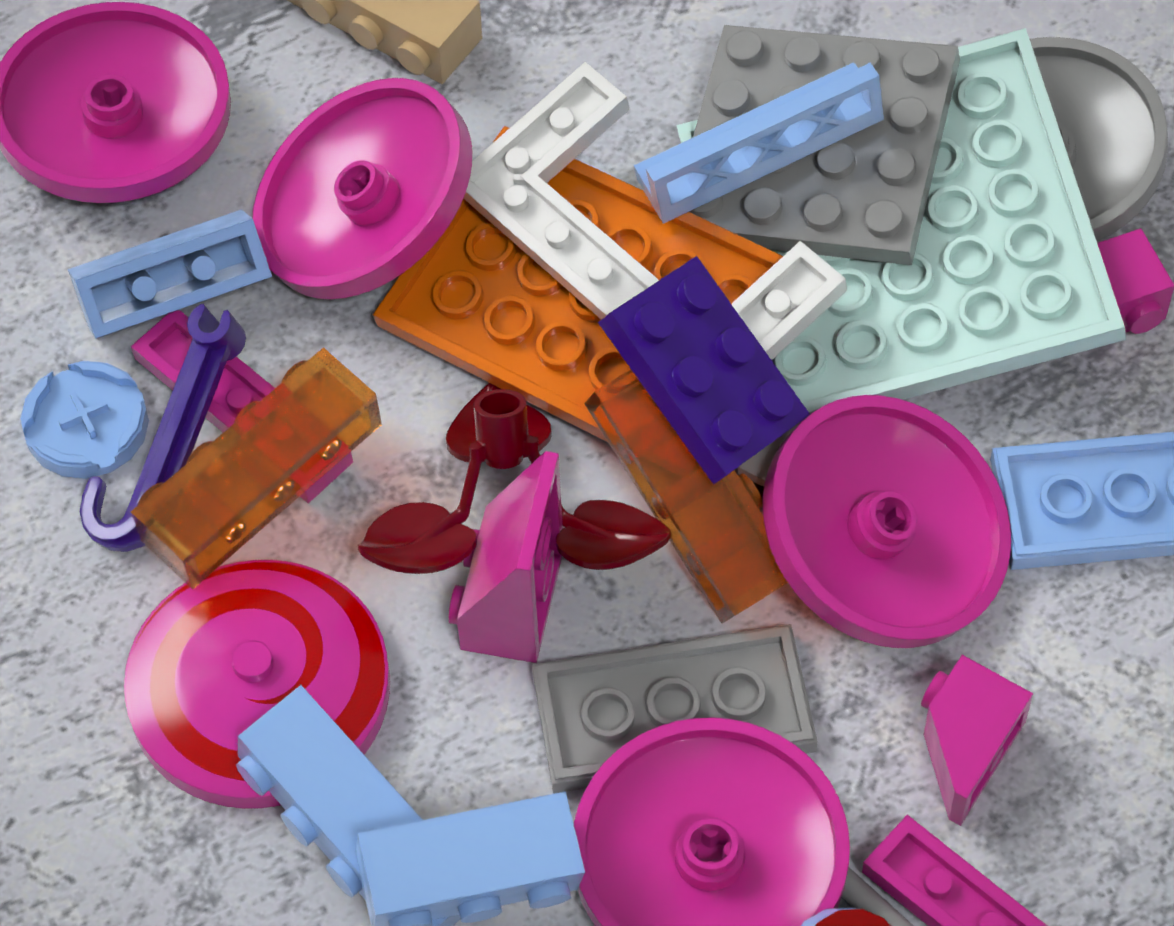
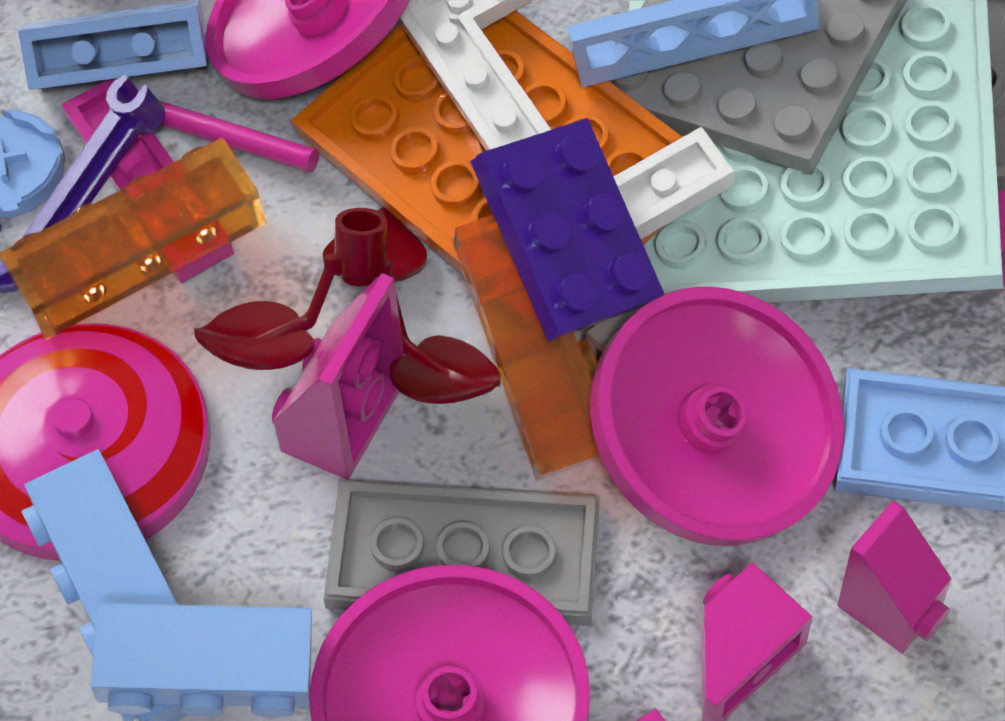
camera: 15 degrees right, 0 degrees up
(337, 343) = (240, 137): none -> dark pink bar
(1100, 644) = (895, 581): none -> dark pink slope

